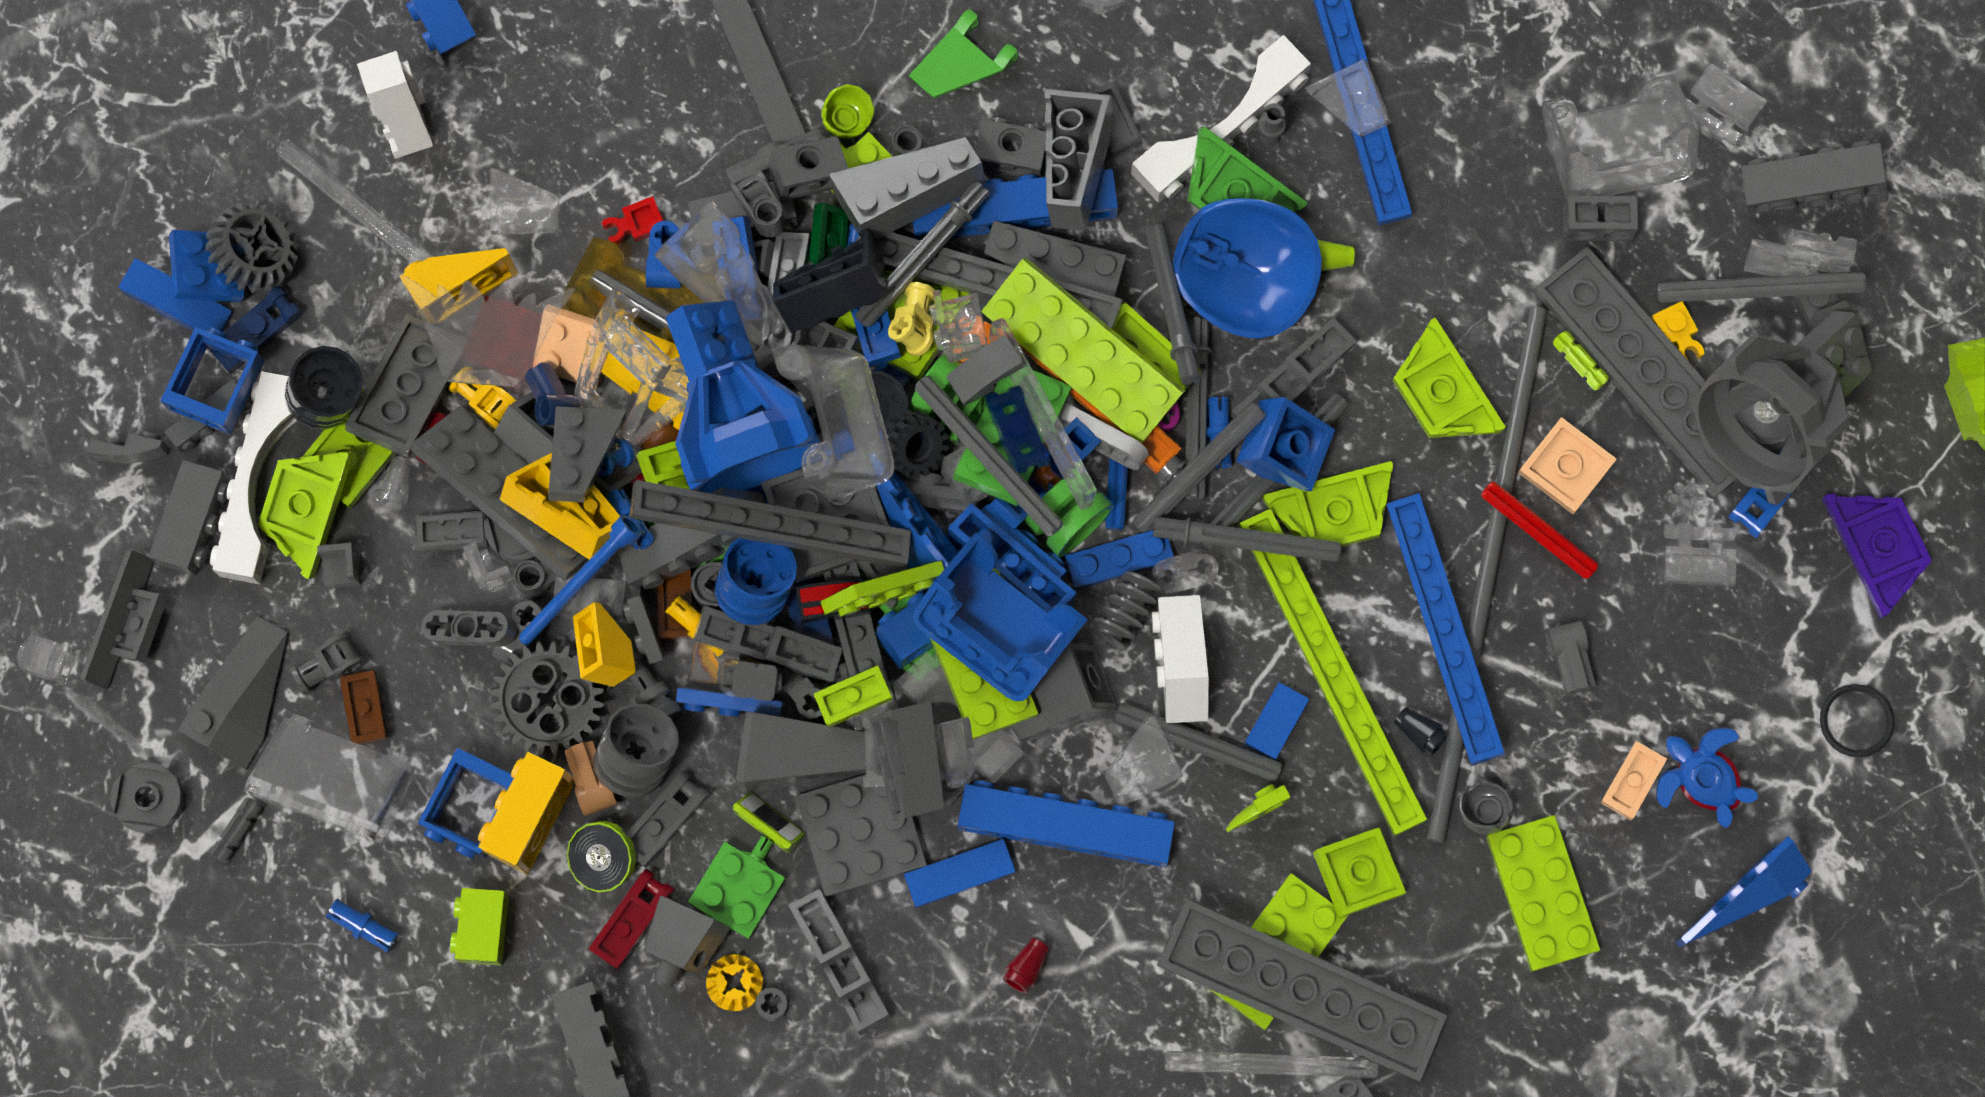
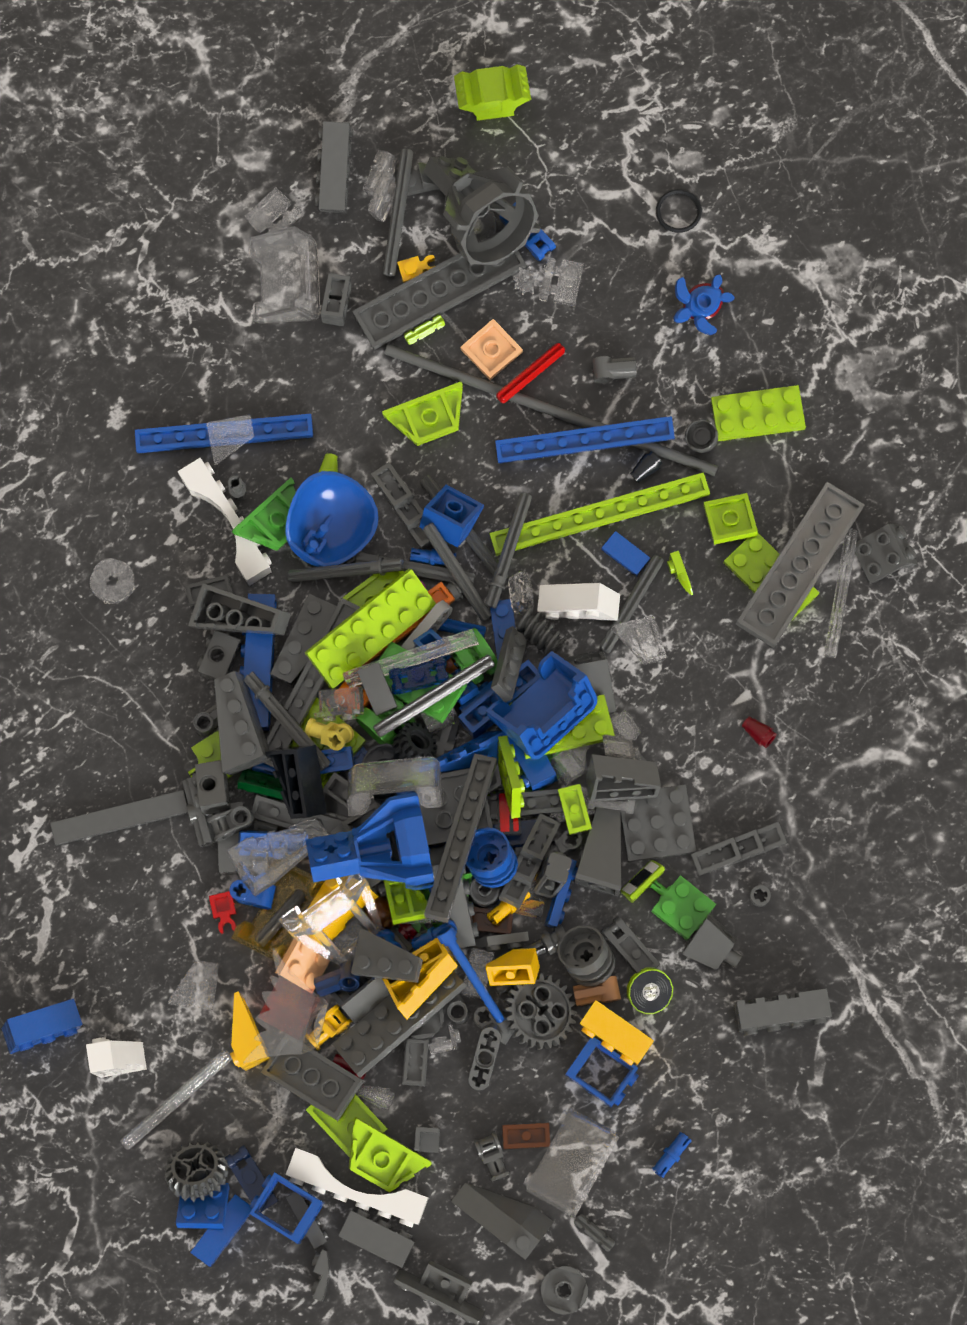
camera: 80 degrees left, 0 degrees up
(325, 368) = (306, 1117): black wheel -> none
(480, 926) = (684, 1076): lime brick -> none
(629, 920) = (693, 978): dark red plate -> none
(735, 999) = (742, 929): yellow gear -> none
(847, 111) = (174, 759): lime hair -> none
(958, 62) = (152, 683): bright green flag -> none
(959, 873) = (693, 765): blue tile -> none
(1060, 562) = (509, 664): none -> dark grey plate
(1066, 825) = (673, 693): blue brick -> none
(1338, 508) = (499, 492): lime wing -> none
(1633, 780) = (697, 346): light nougat plate -> none
(1770, 880) = (771, 279): blue wedge -> none
(1880, 544) = (573, 175): dark purple wing -> none

